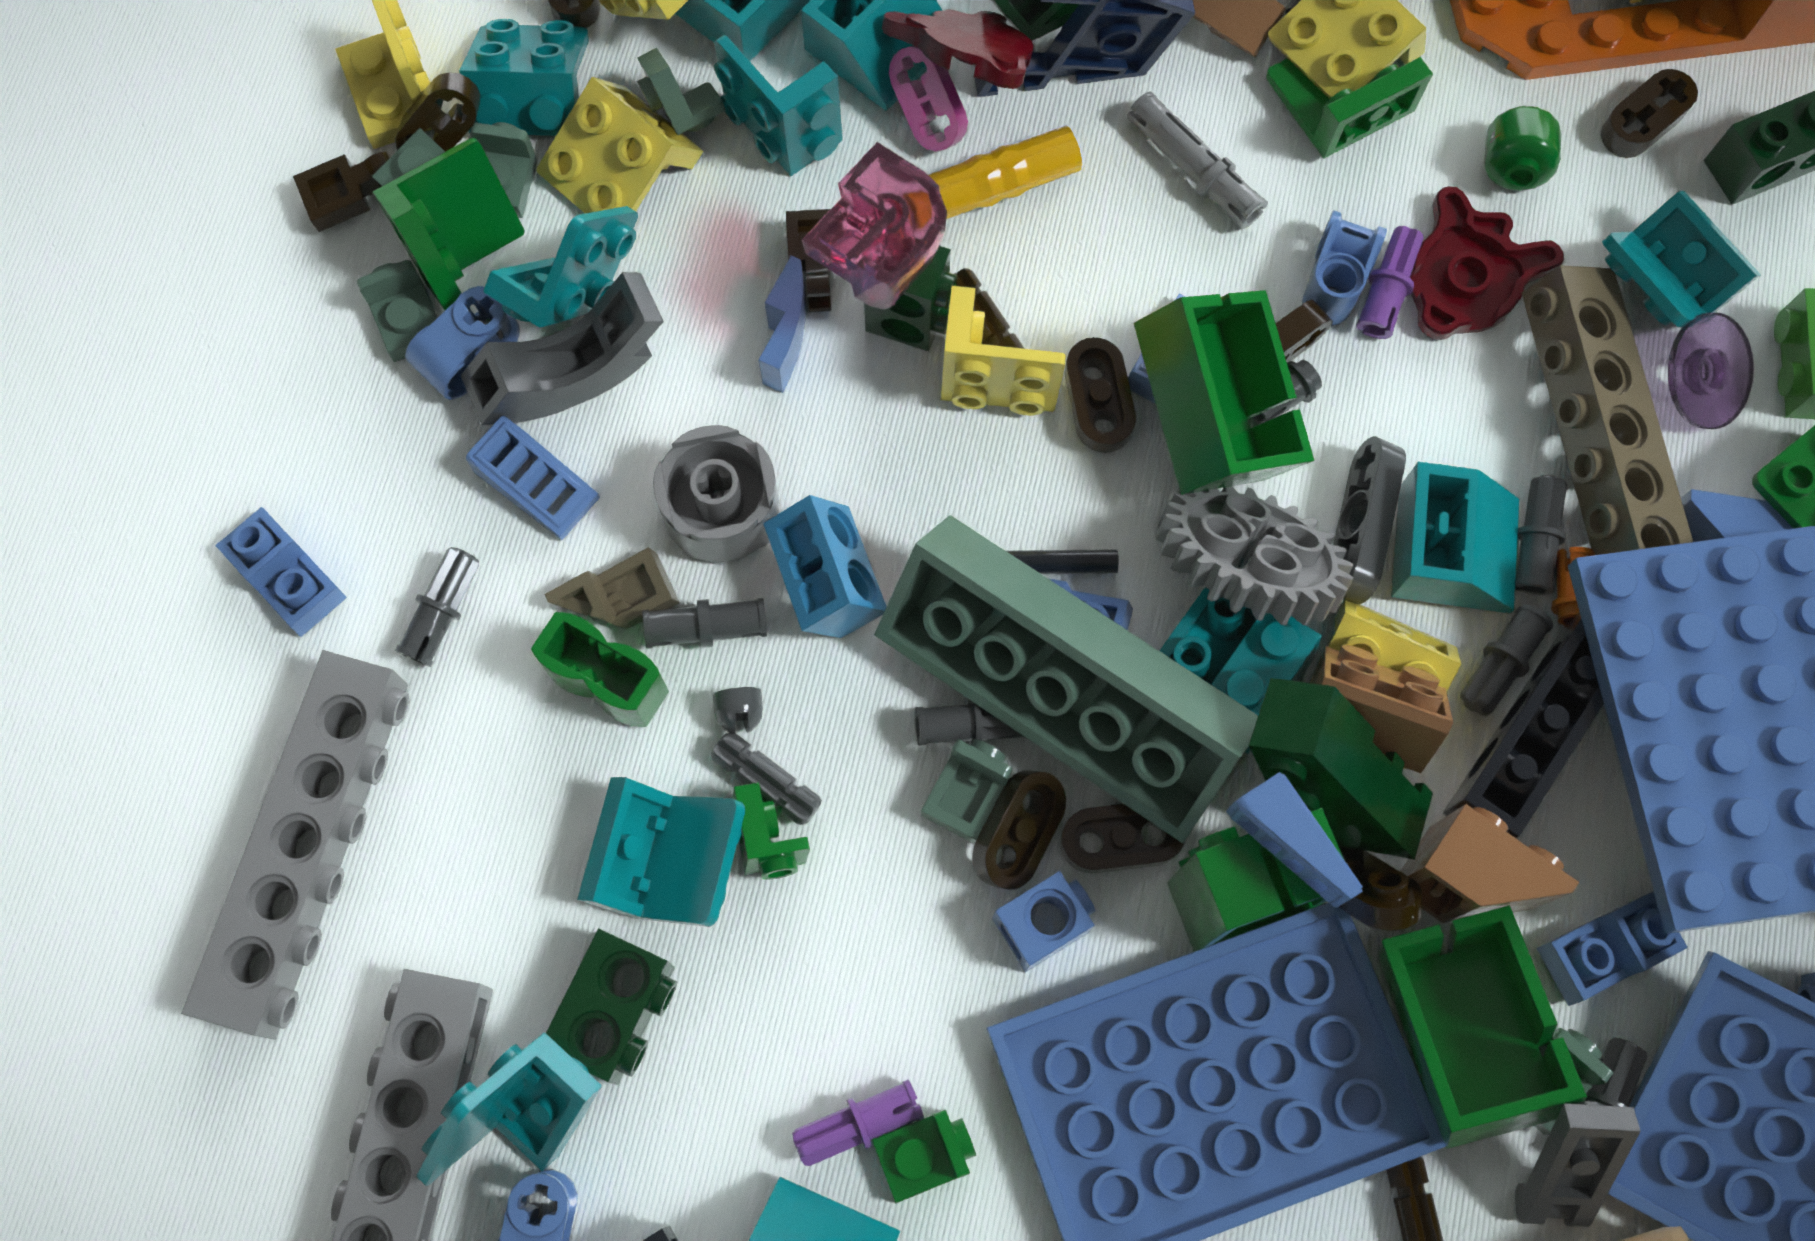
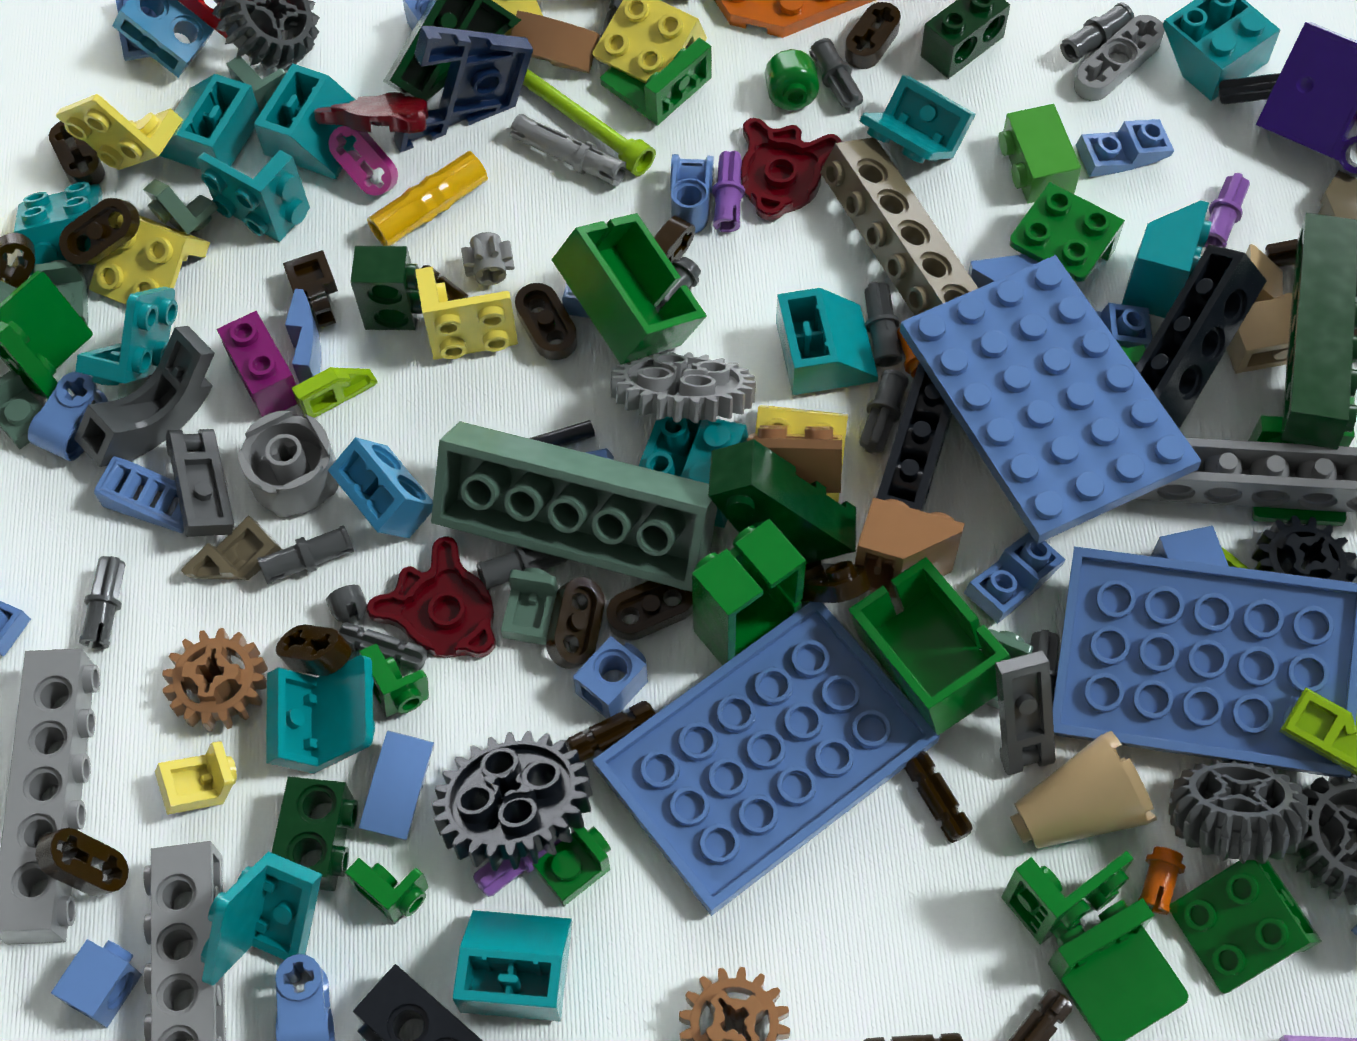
camera: 15 degrees left, 10 degrees down
(295, 1115) = (98, 981): none -> medium blue brick
(323, 945) = (79, 870): none -> dark brown beam
(487, 887) = (196, 780): none -> light yellow bracket
(539, 781) = (227, 693): none -> medium nougat gear
(570, 104) = (101, 228): none -> dark brown plate
(600, 485) = (200, 483): none -> dark grey plate
(612, 673) = (242, 604): green brick -> none
(670, 1105) = (378, 888): none -> green bracket
(684, 754) = (313, 650): none -> dark brown beam
(718, 345) = (259, 363): none -> magenta brick
(732, 976) = (396, 785): none -> medium blue slope
(801, 405) = (331, 389): none -> lime tile
(854, 747) = (440, 608): none -> dark red tile
(881, 227) = (352, 241): clear pink brick -> none
(915, 1084) = (512, 800): none -> black gear
(1021, 990) = (609, 730): none -> dark brown axle
(1049, 285) = (487, 258): none -> light grey gear
(1283, 191) = (635, 153): none -> lime piece
(1289, 831) = (747, 534): medium blue slope -> none
(1369, 513) = (758, 344): dark grey beam -> none
(1584, 156) = (836, 73): none -> dark grey axle
(1710, 371) = (963, 185): clear purple dish -> none

